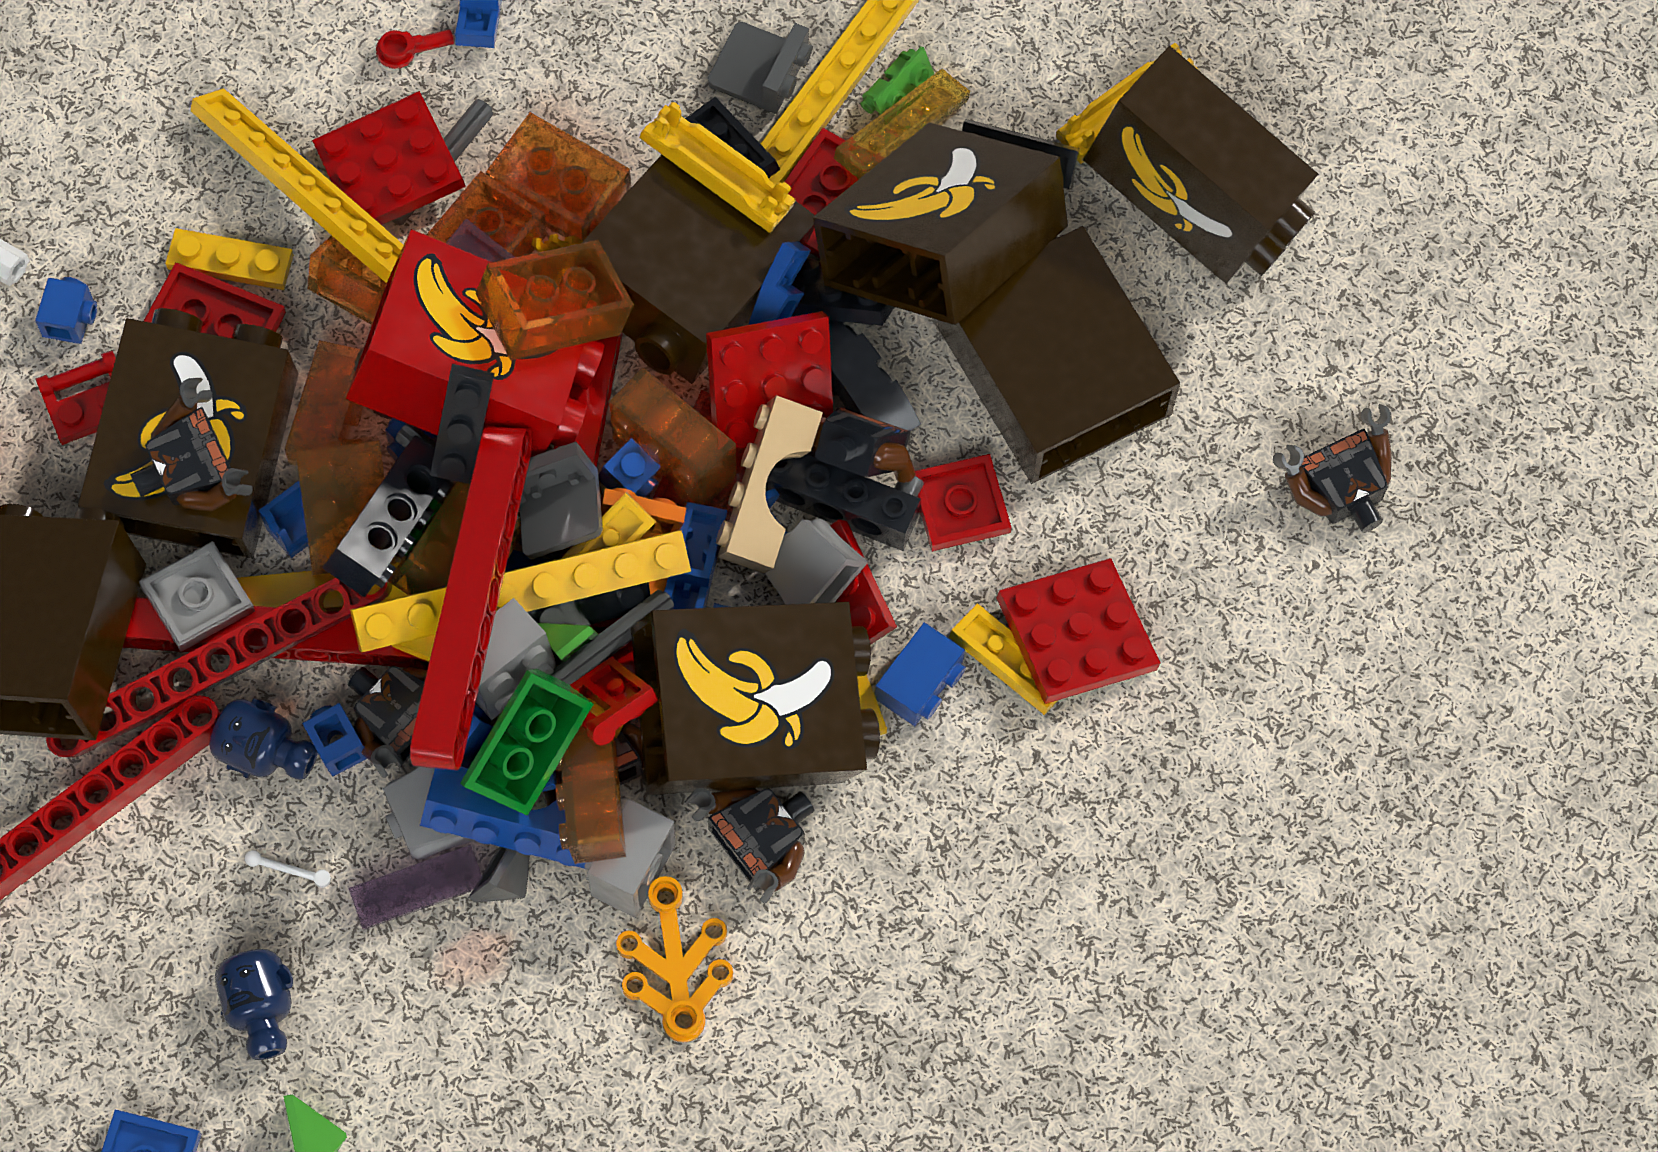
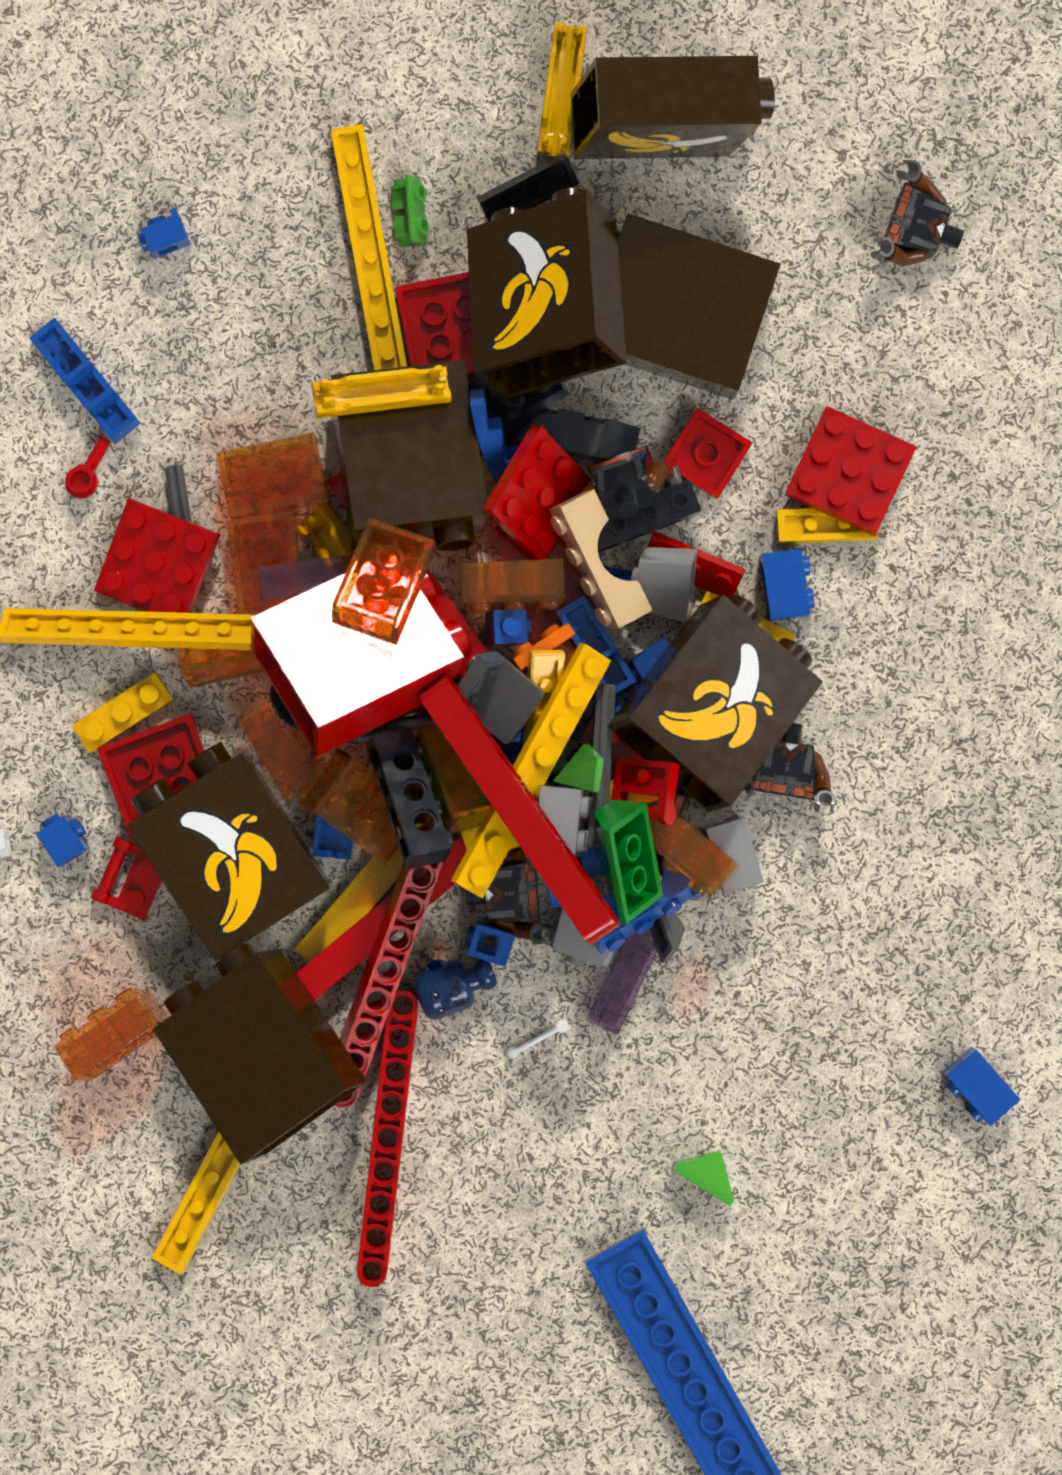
camera: 40 degrees left, 20 degrees up
(189, 457) = (258, 876): torso -> none
(196, 596) = (330, 940): light grey tile -> none
(255, 998) = (598, 1130): dark blue piece -> none
(462, 423) = (406, 710): black plate -> none
(675, 968) = (811, 888): light orange plant -> none
(725, 126) = (351, 351): black plate -> none
(761, 65) = (314, 279): dark grey bracket -> none
(927, 103) = (442, 239): clear yellow plate -> none

